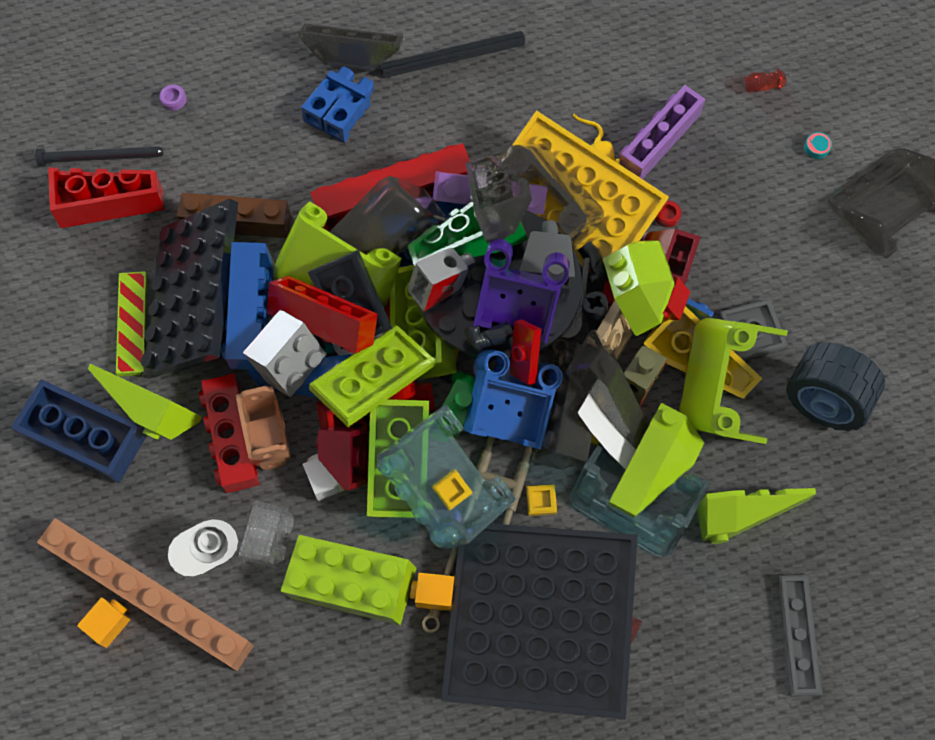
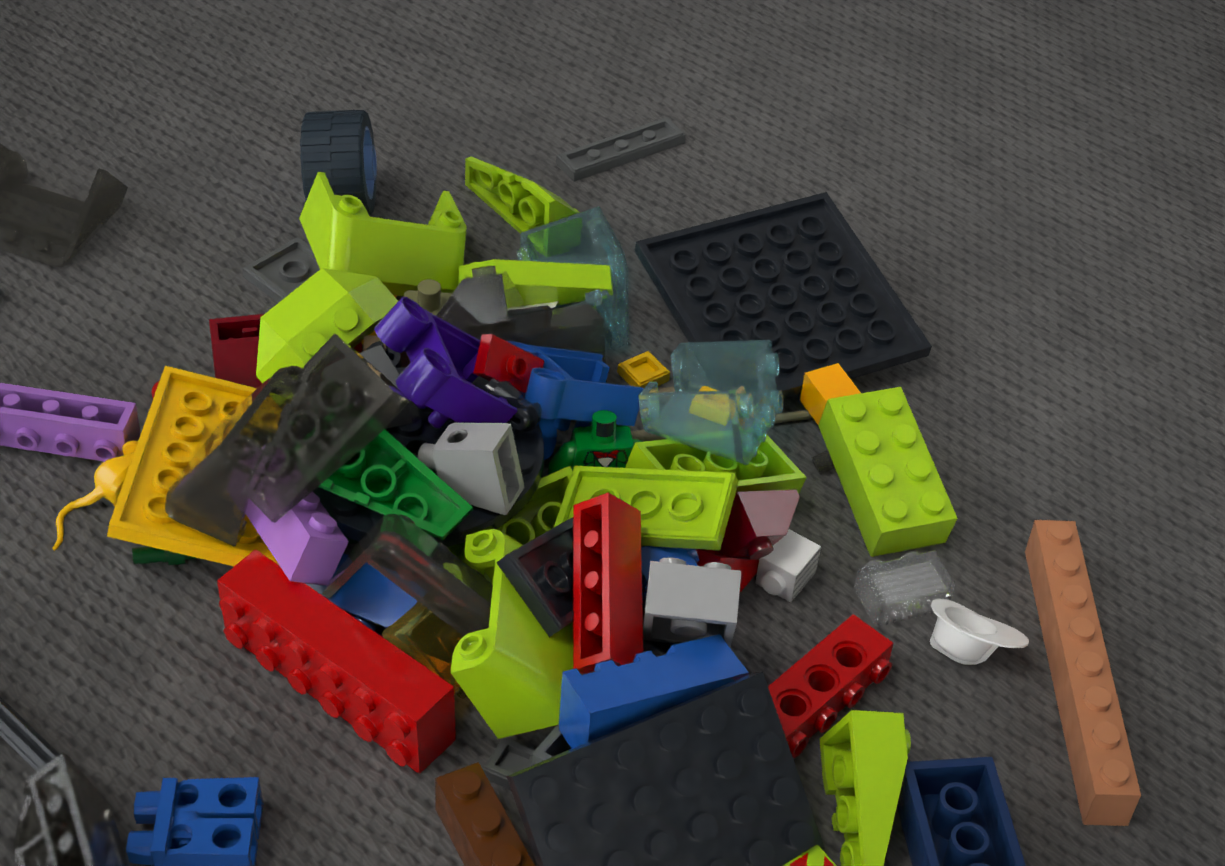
camera: 125 degrees left, 25 degrees down
(104, 621) = (1147, 691): light orange brick -> none
(263, 427) = (791, 626): nougat piece -> none

